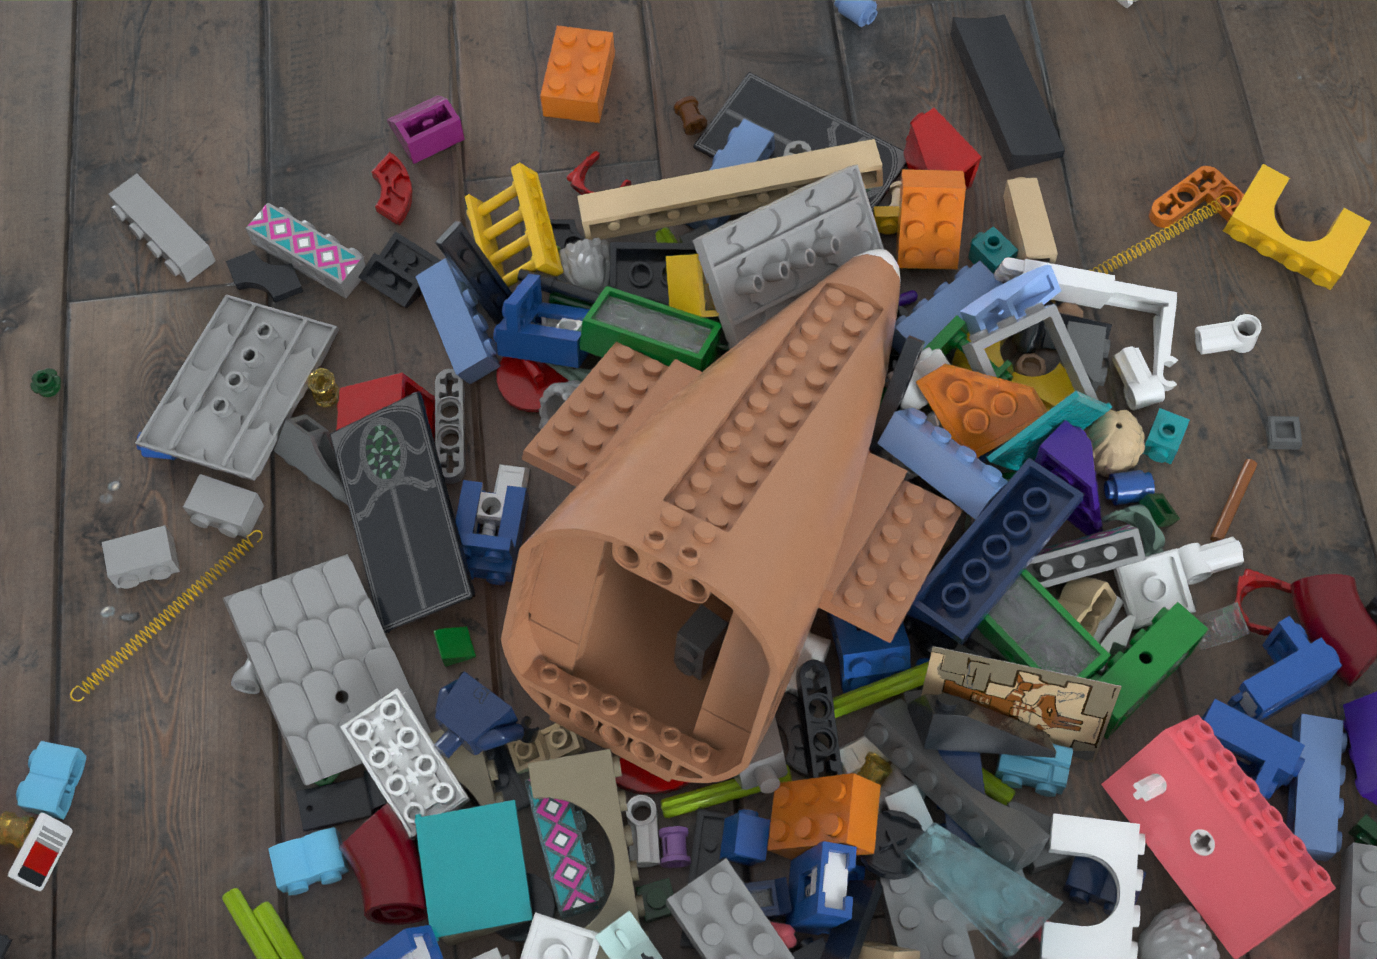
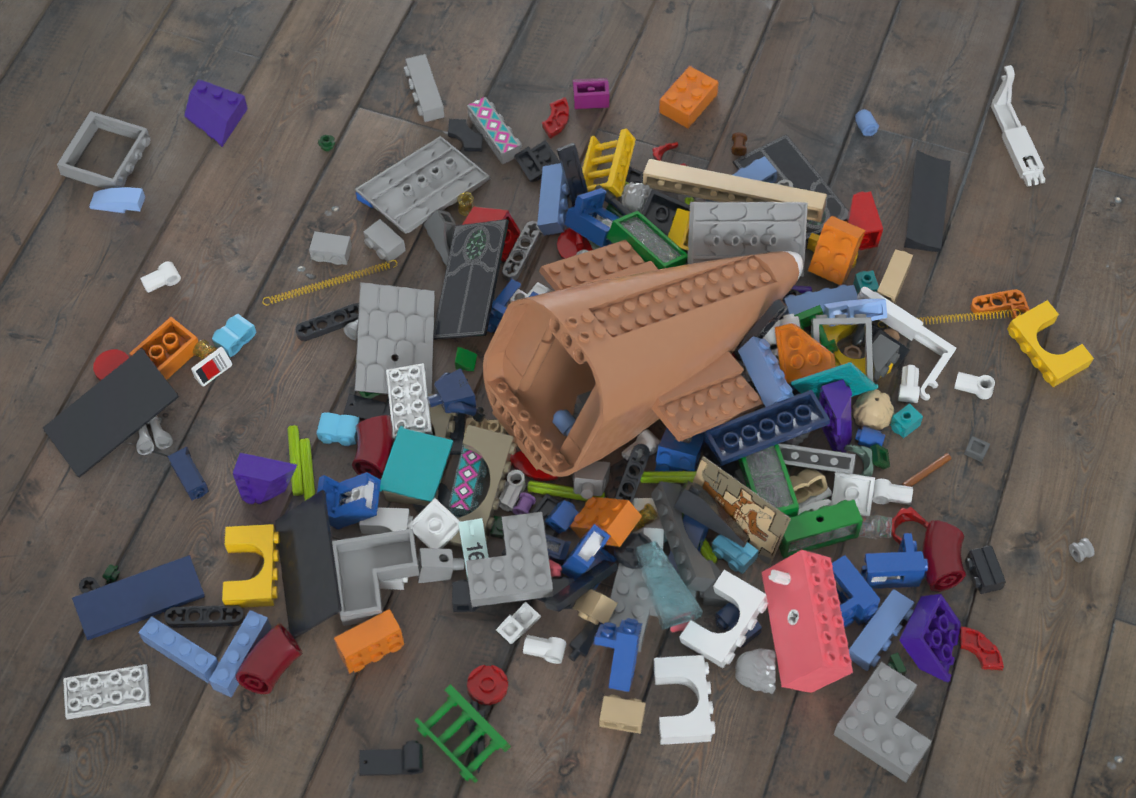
camera: 25 degrees right, 5 degrees down
(197, 677) = (328, 318): none -> black beam
(673, 681) = (563, 421): none -> medium blue brick

